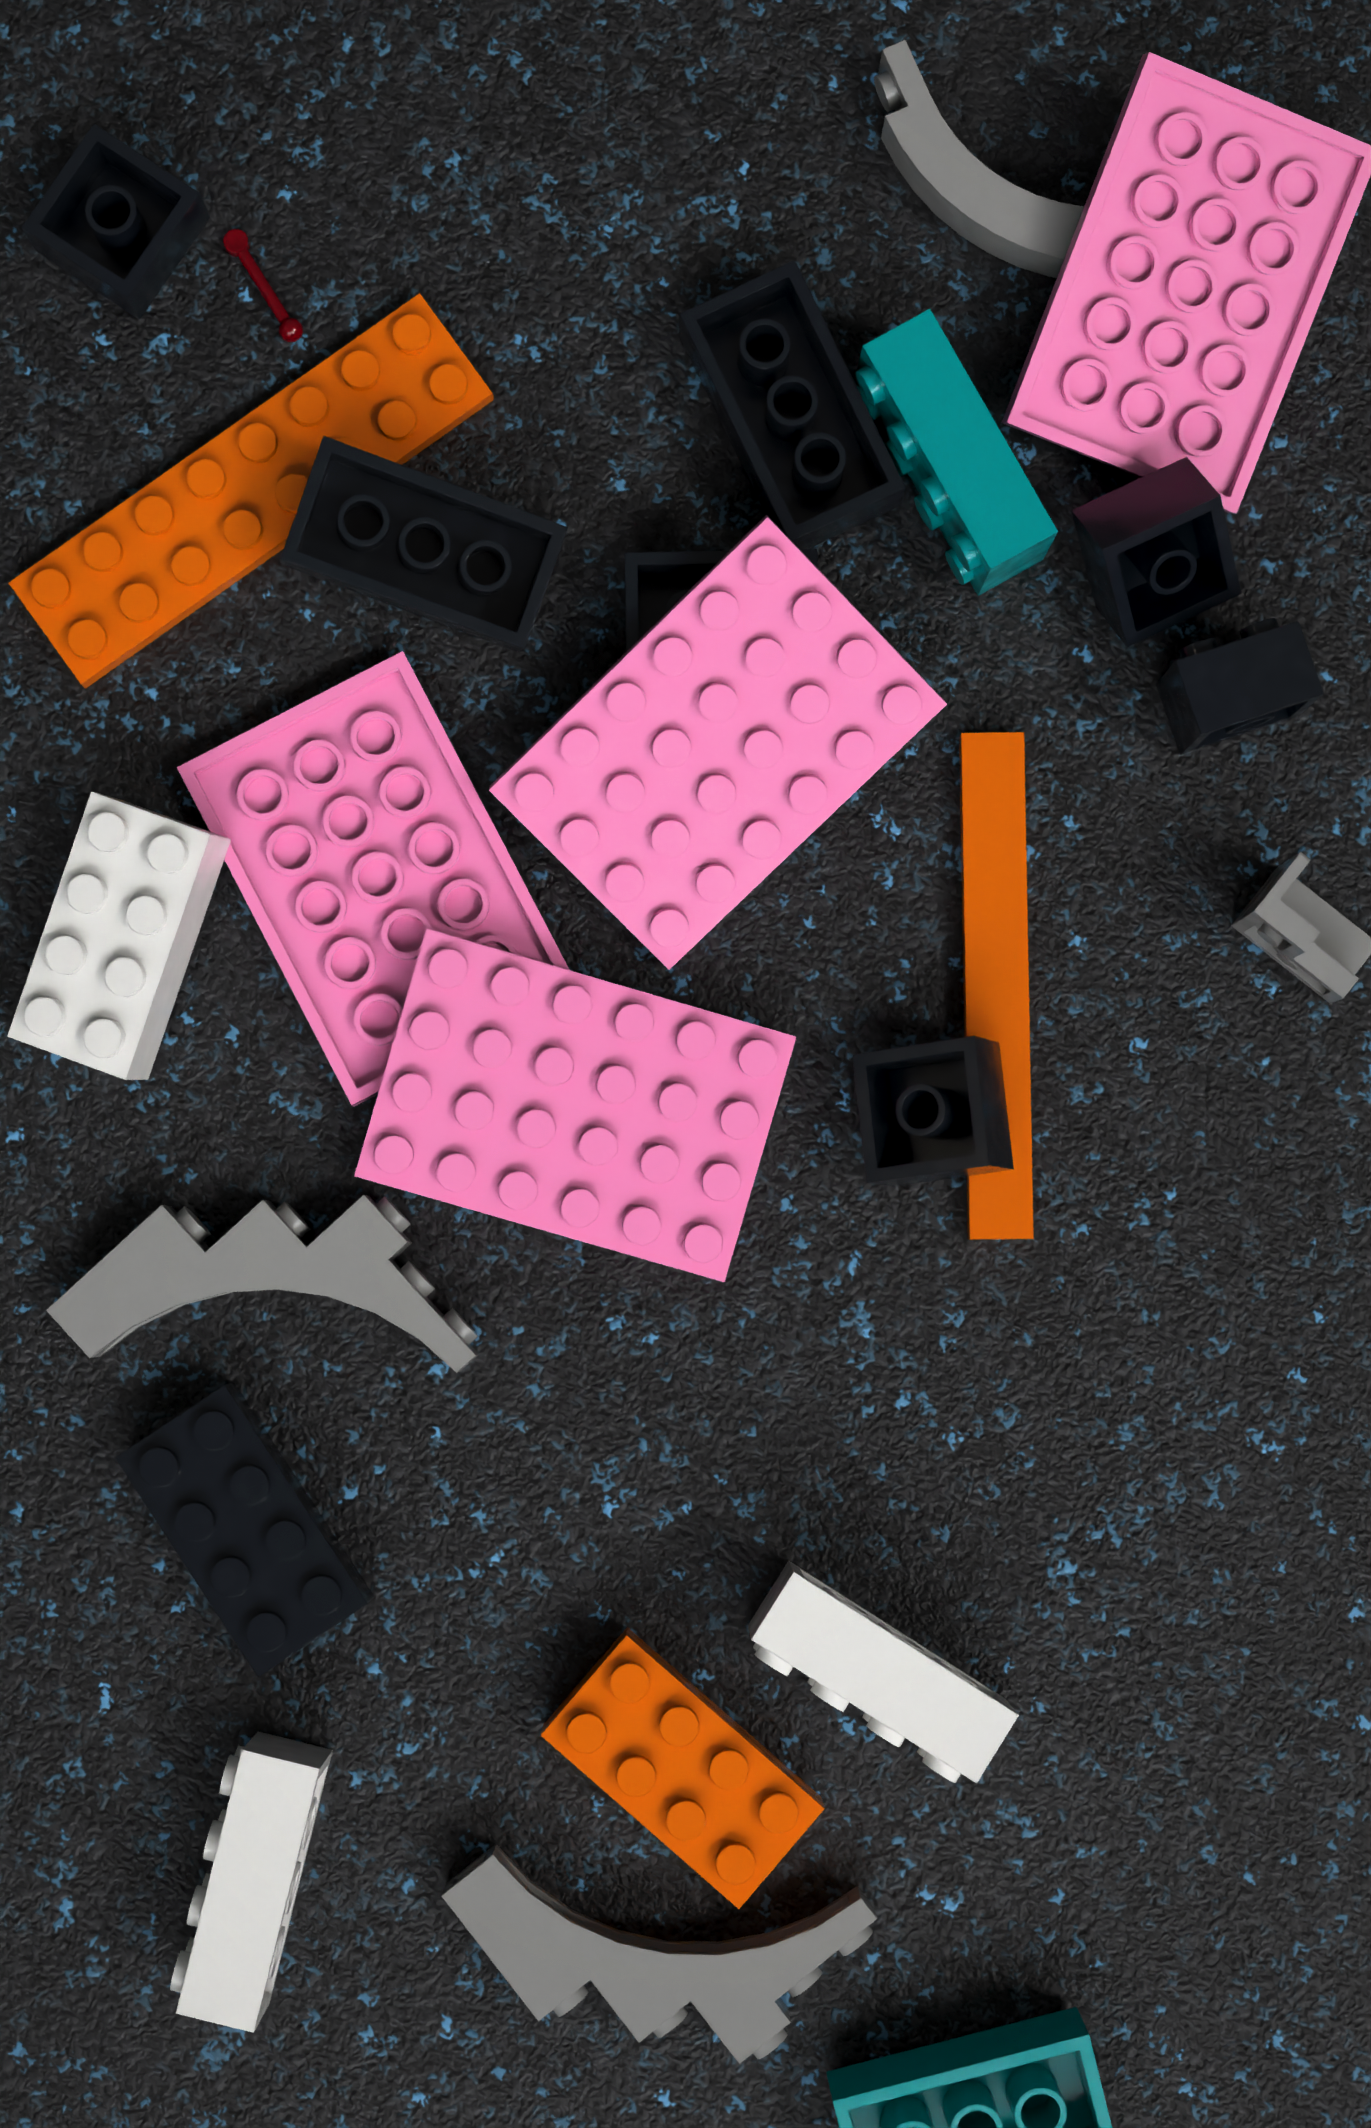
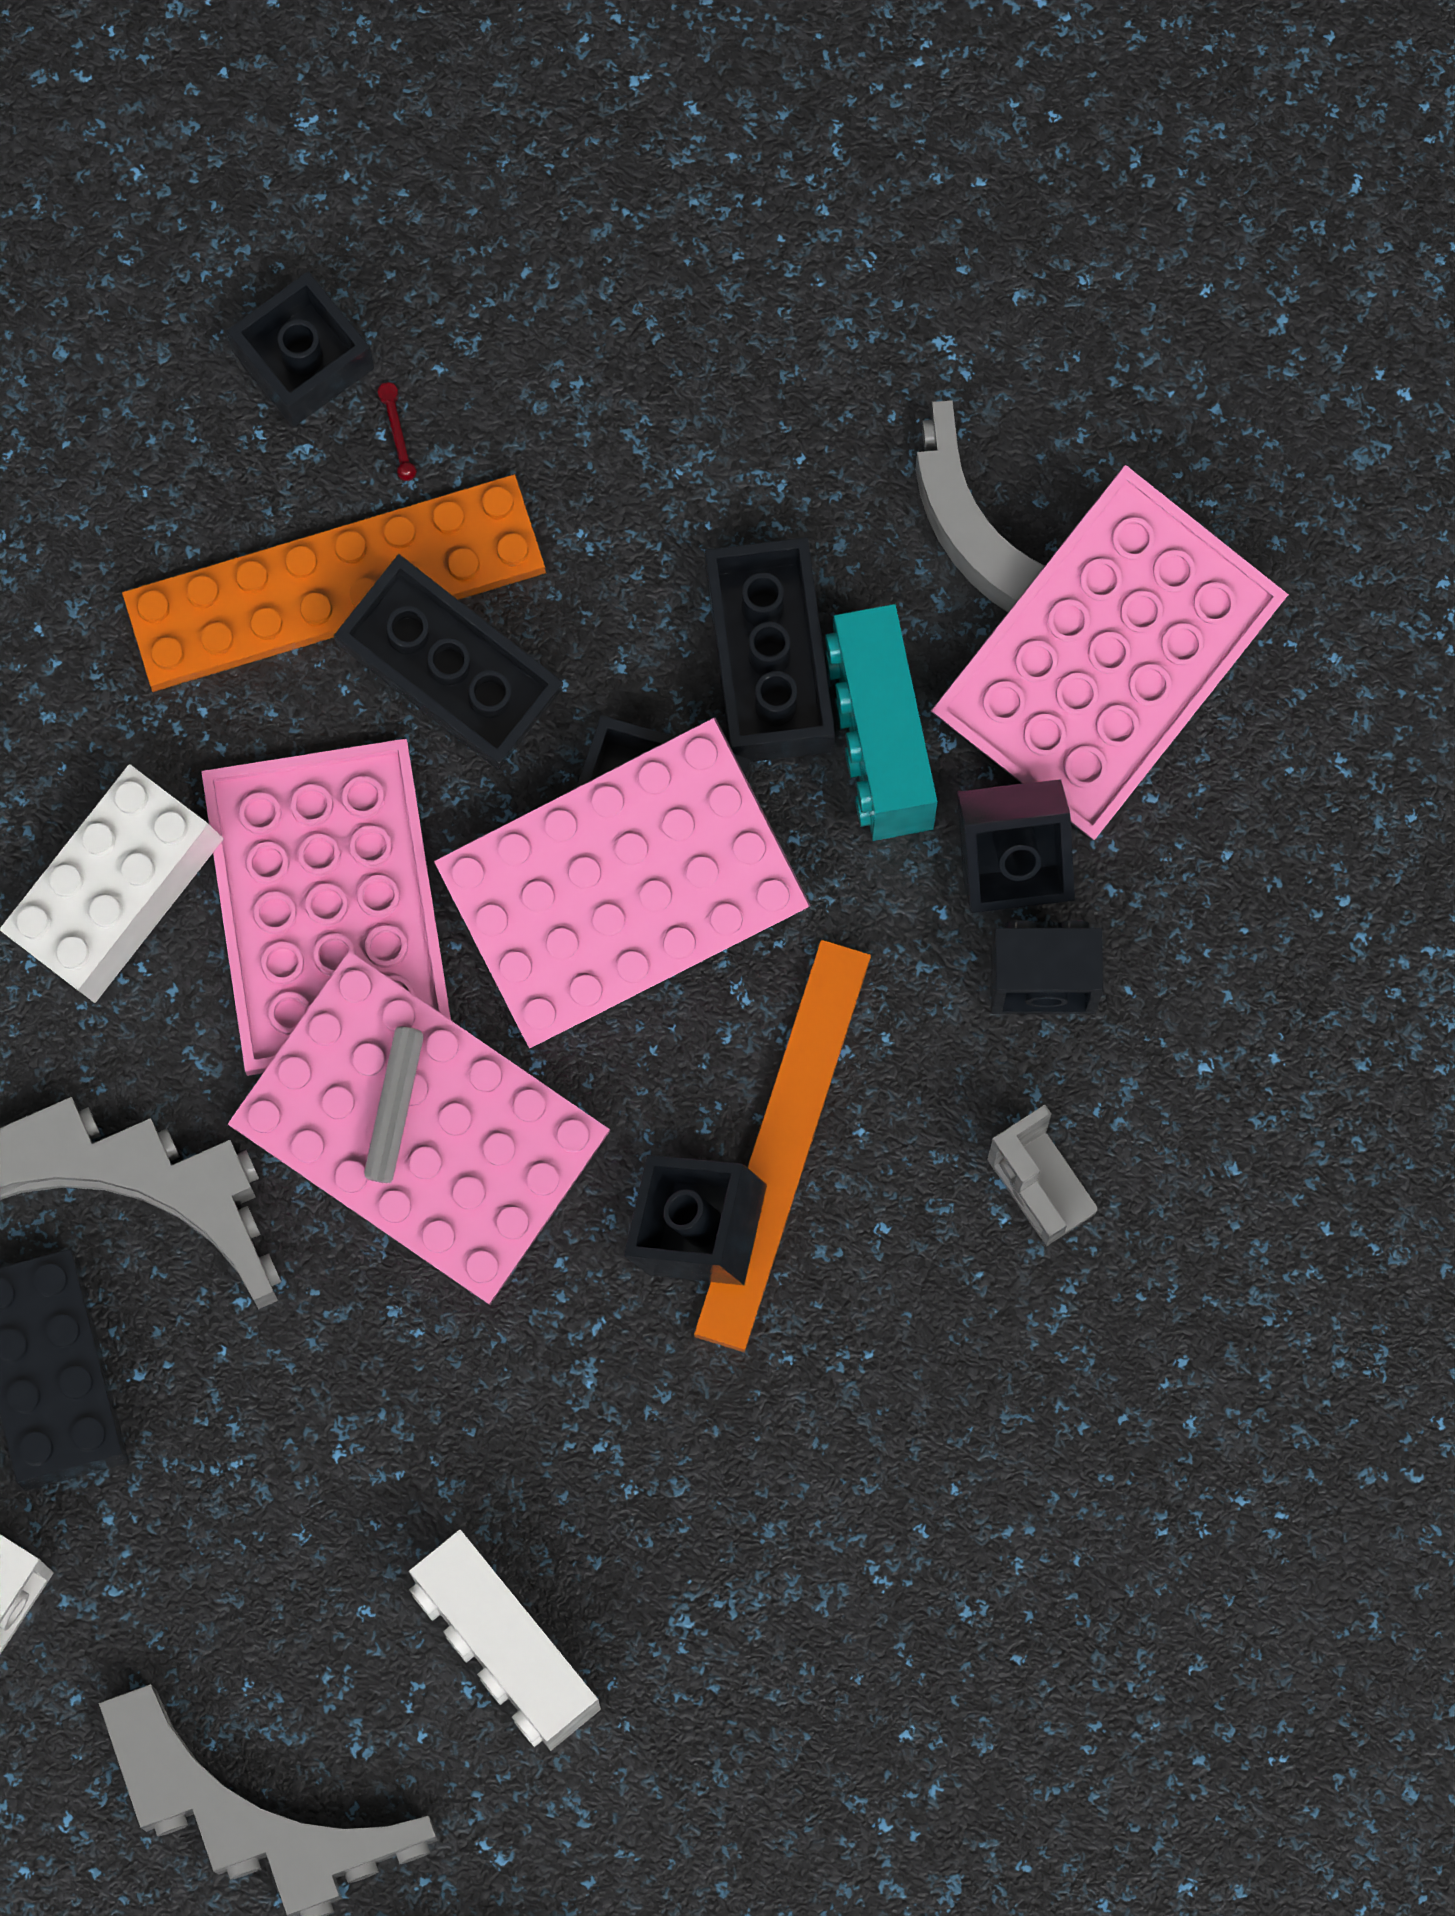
camera: 25 degrees right, 10 degrees down
(541, 1094) = (393, 1104): none -> light grey axle
(683, 1768) = (323, 1670): orange brick -> none

